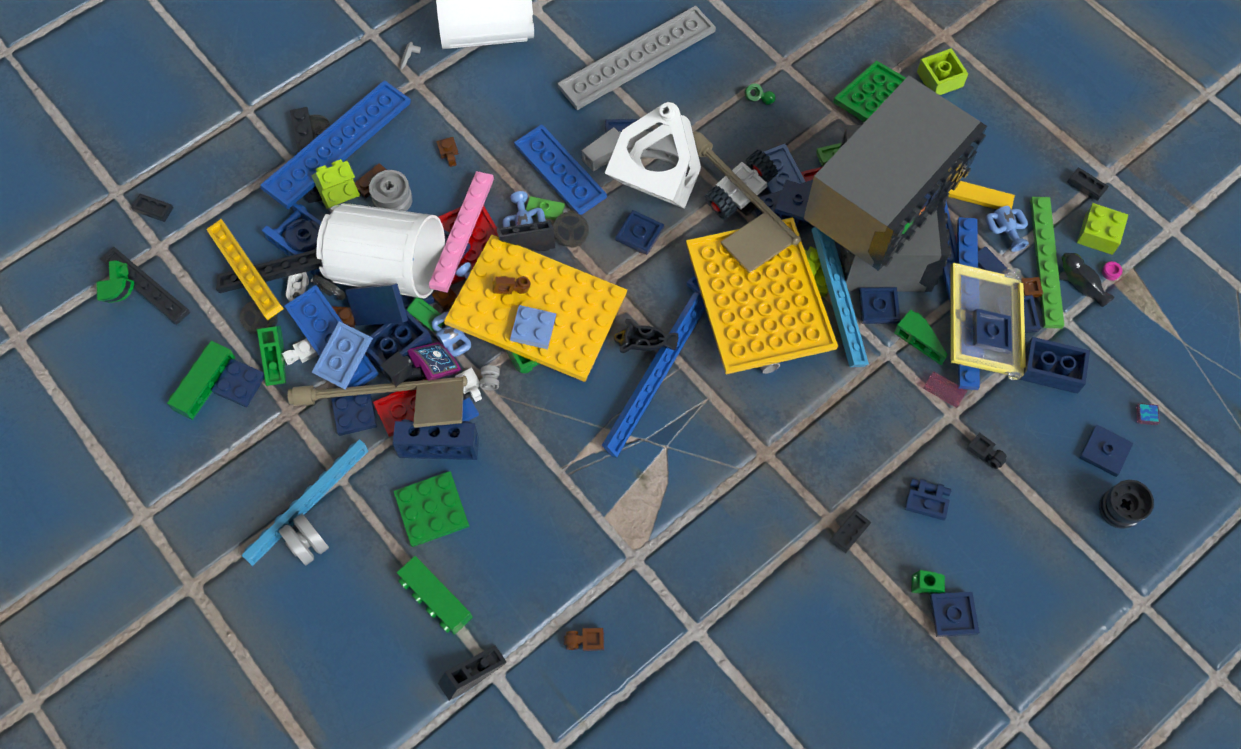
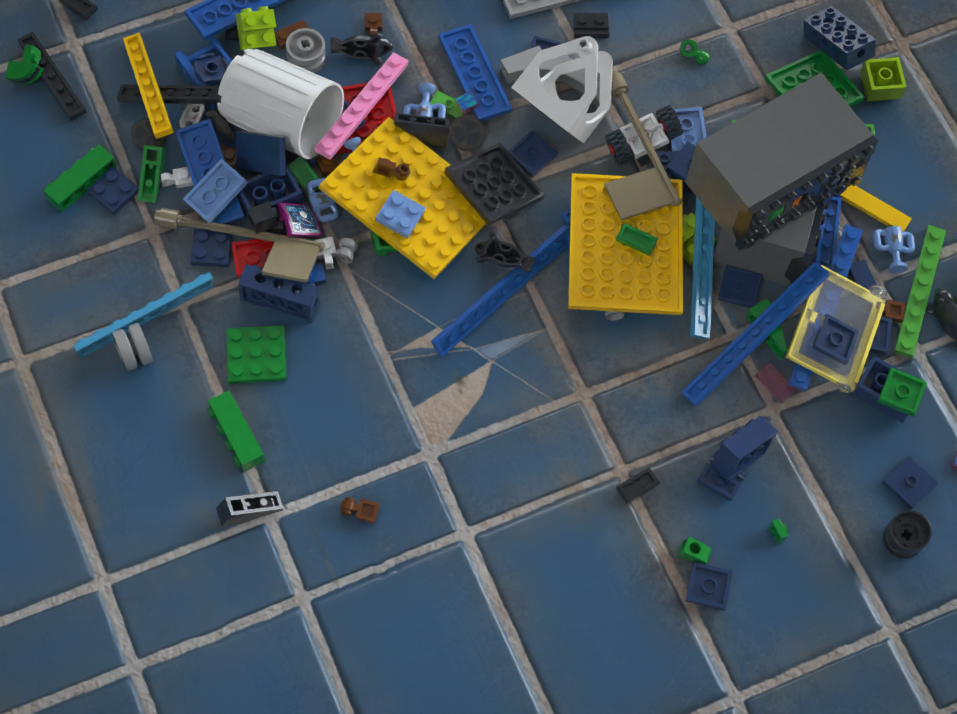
camera: 10 degrees right, 0 degrees up
(445, 174) = (362, 47): none -> black animal
(562, 200) = (466, 102): none -> tile
(613, 271) = (493, 183): none -> black plate
(654, 95) = (591, 24): none -> black plate
(770, 287) = (636, 239): none -> green tile
(890, 45) = (839, 38): none -> dark blue brick
(913, 348) = (755, 334): none -> blue plate
(942, 464) = (743, 447): none -> dark blue brick
(983, 447) = (790, 446): black plate -> none
(1001, 537) = (778, 531): none -> green plate
(1072, 364) = (902, 392): none -> green tile

